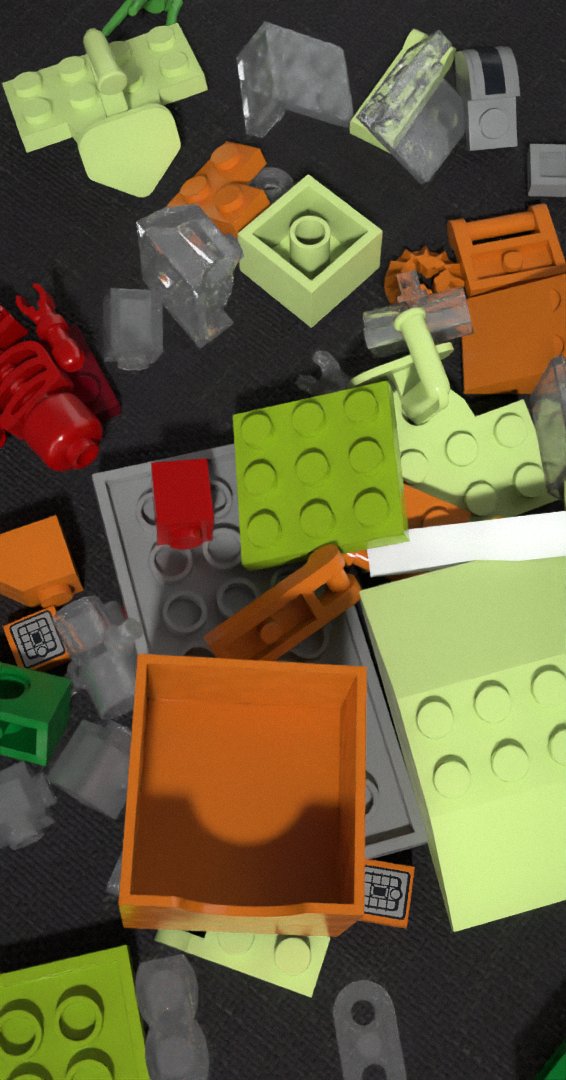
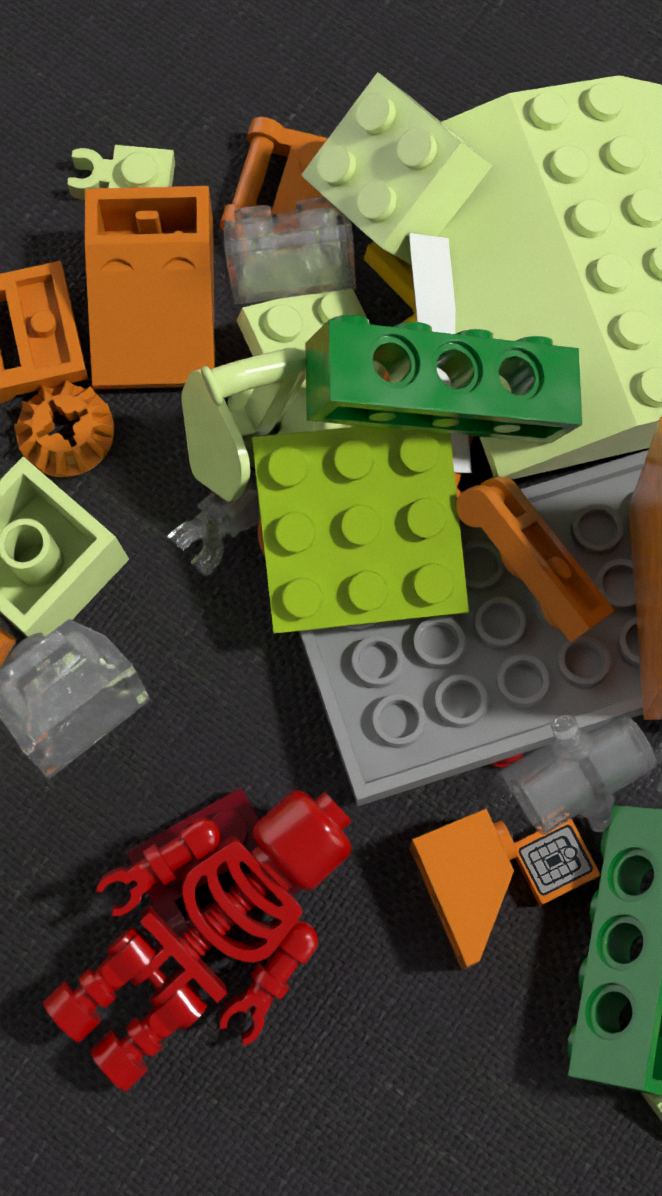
camera: 95 degrees left, 5 degrees up
(132, 327) = (143, 770): clear brick -> none
(182, 503) = (403, 680): red brick -> none
(405, 419) = (350, 392): none -> green brick
(445, 316) = (133, 425): clear pin -> none

